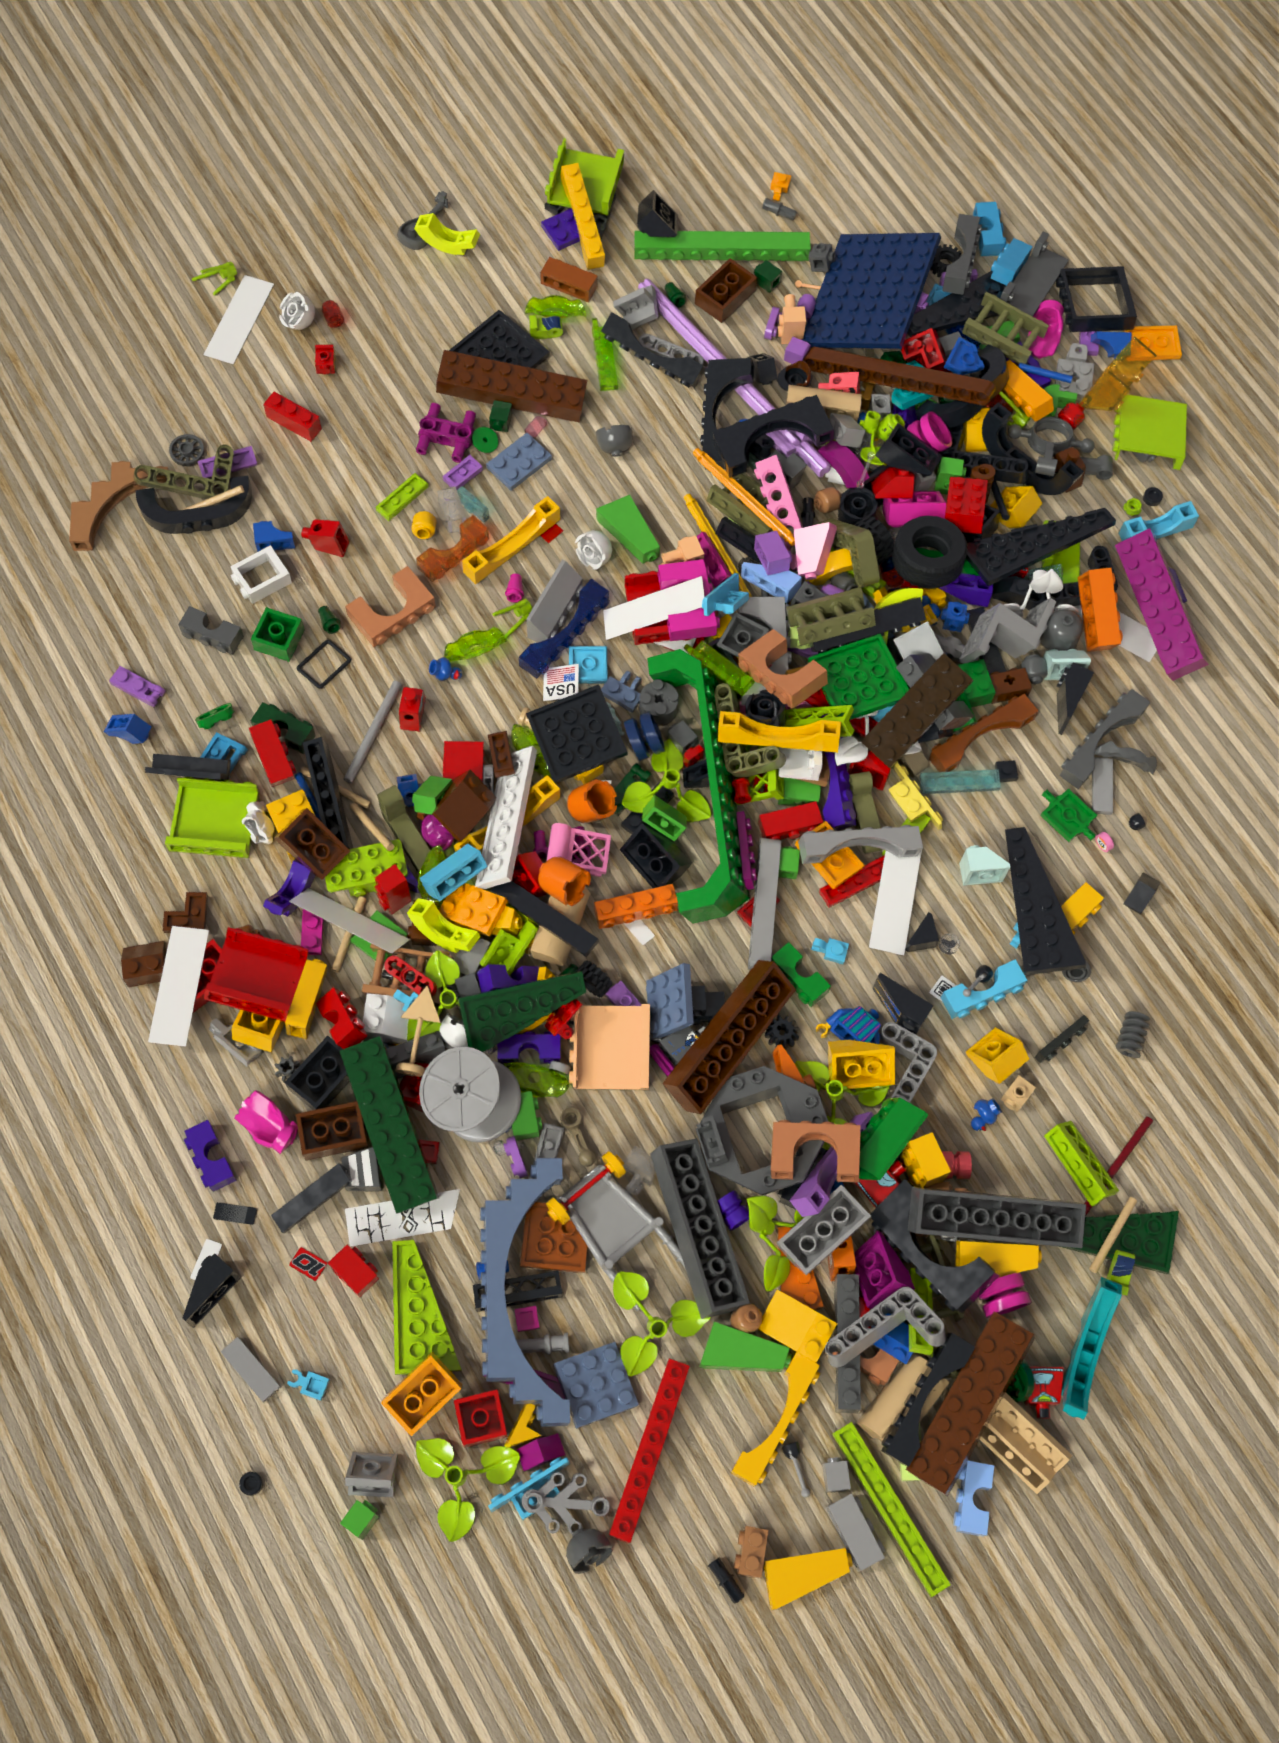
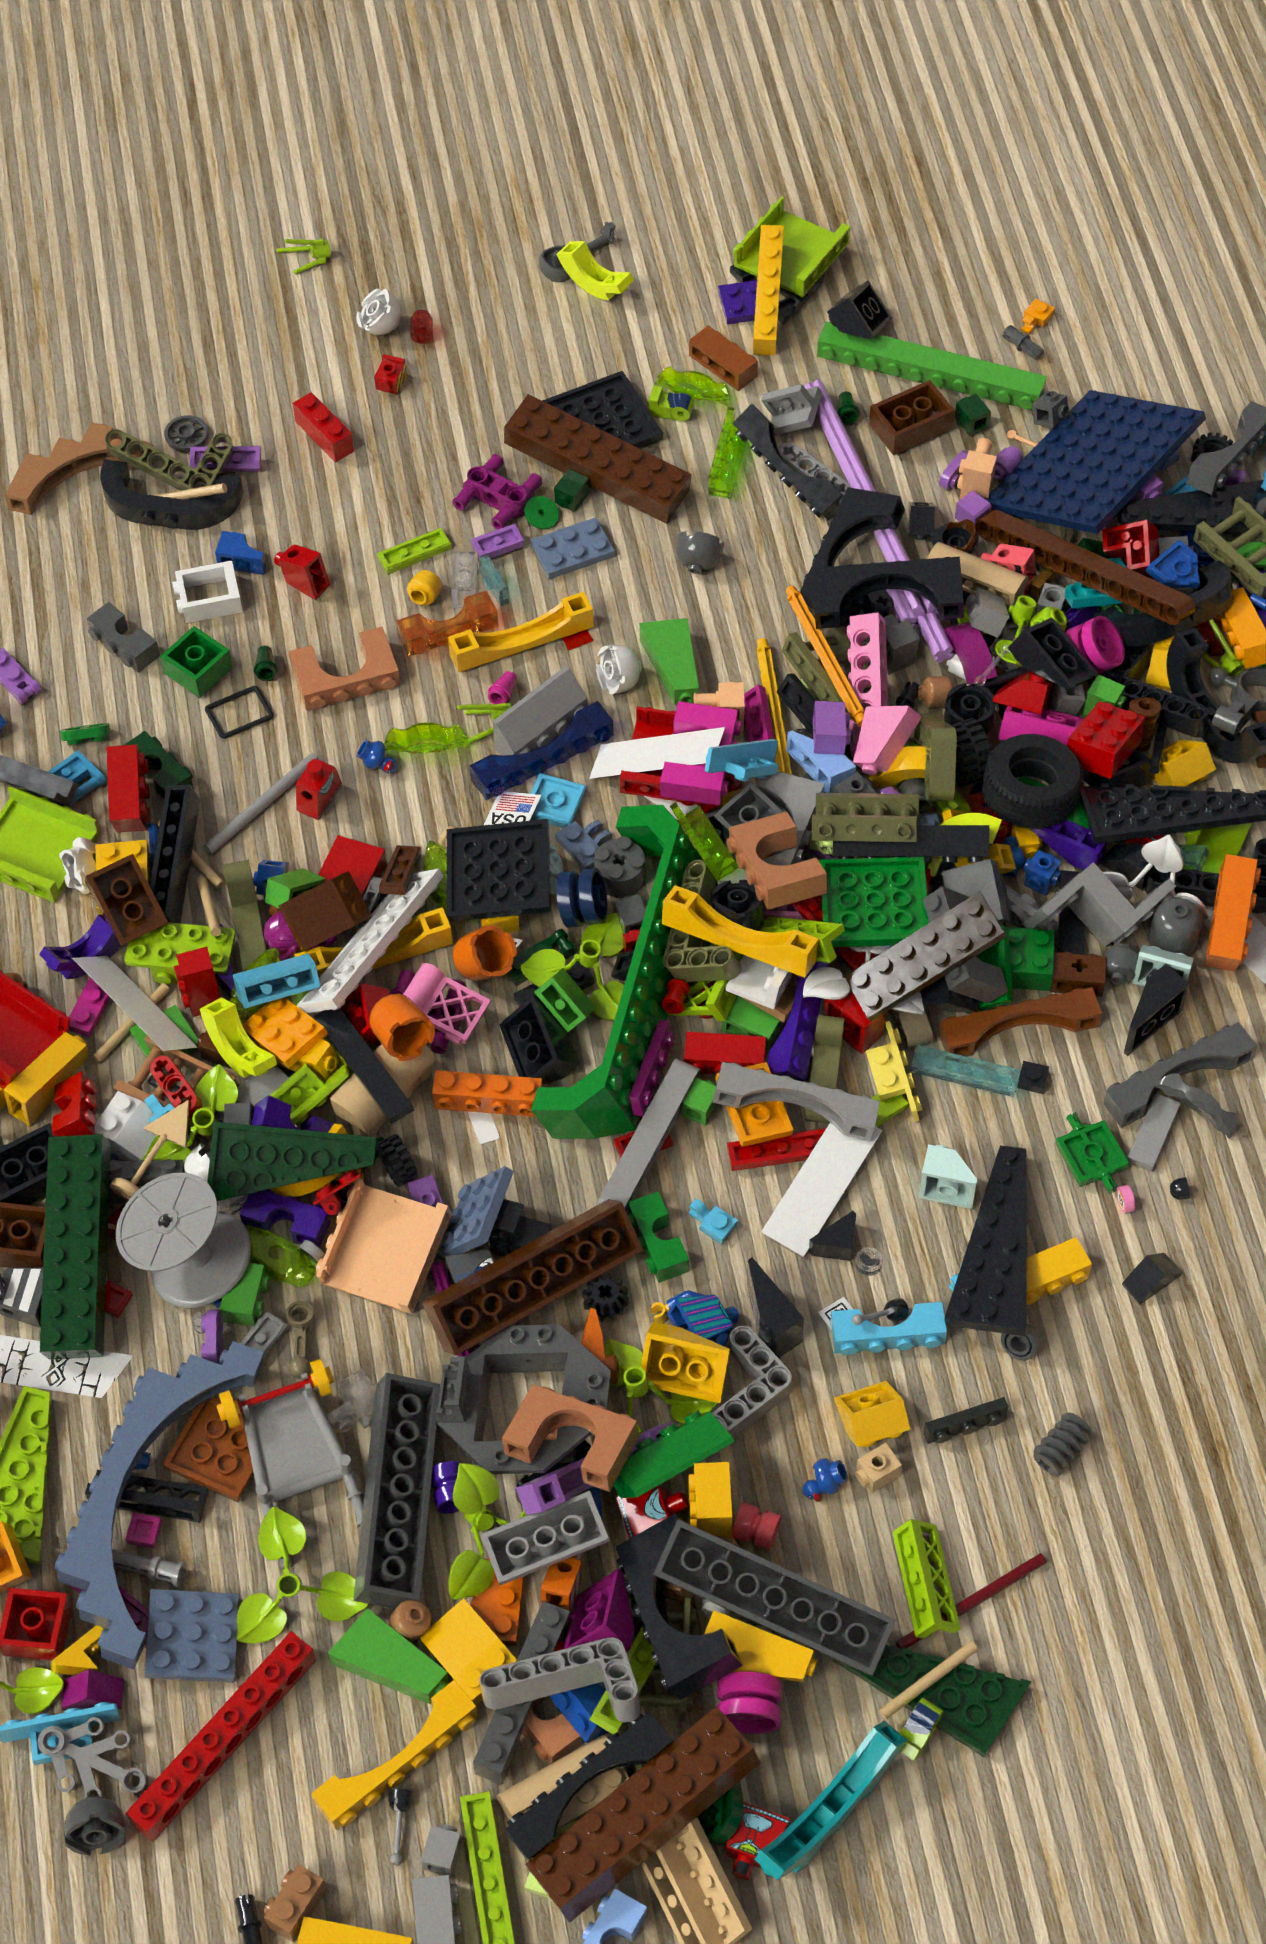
camera: 25 degrees right, 10 degrees down
(238, 319) = (311, 307): white sticker -> none
(536, 426) = (611, 514): clear pink piece -> none

